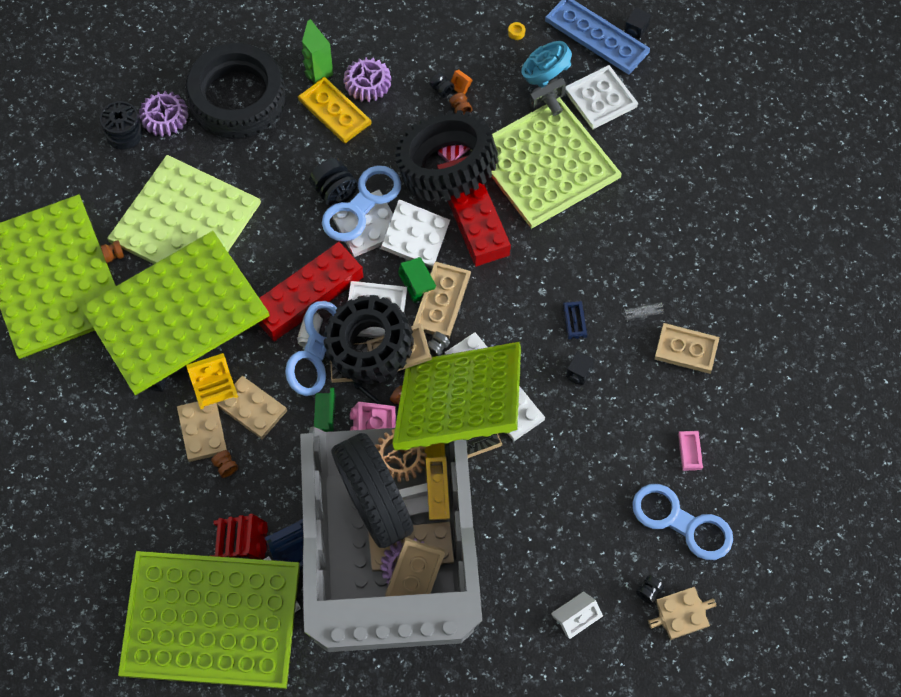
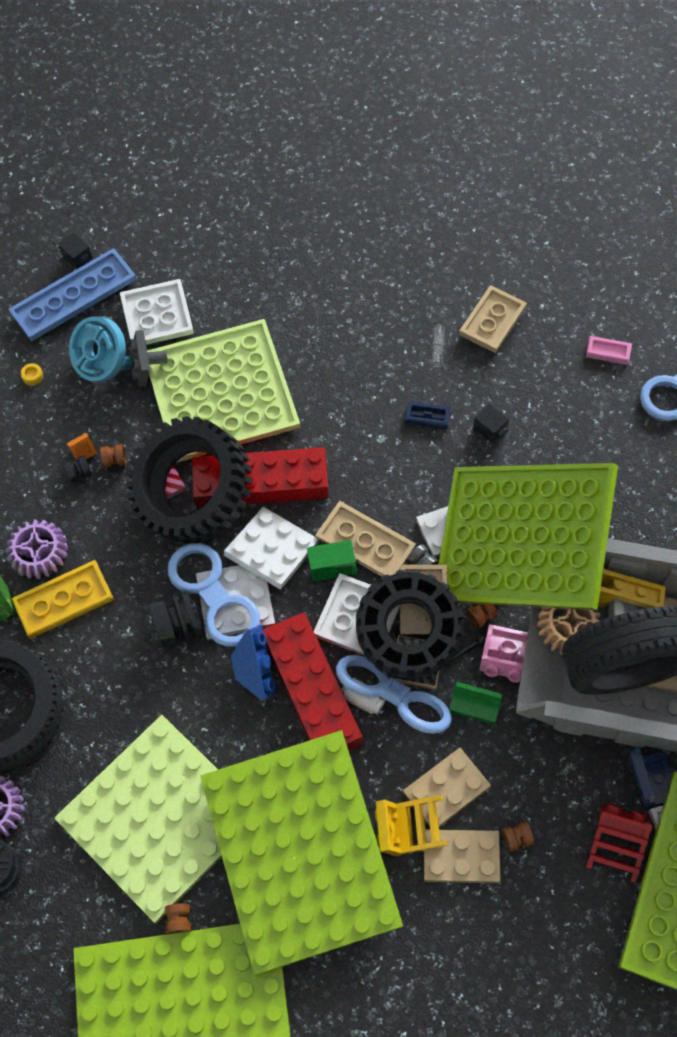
camera: 70 degrees left, 0 degrees up
(311, 245) = (253, 664): none -> blue slope

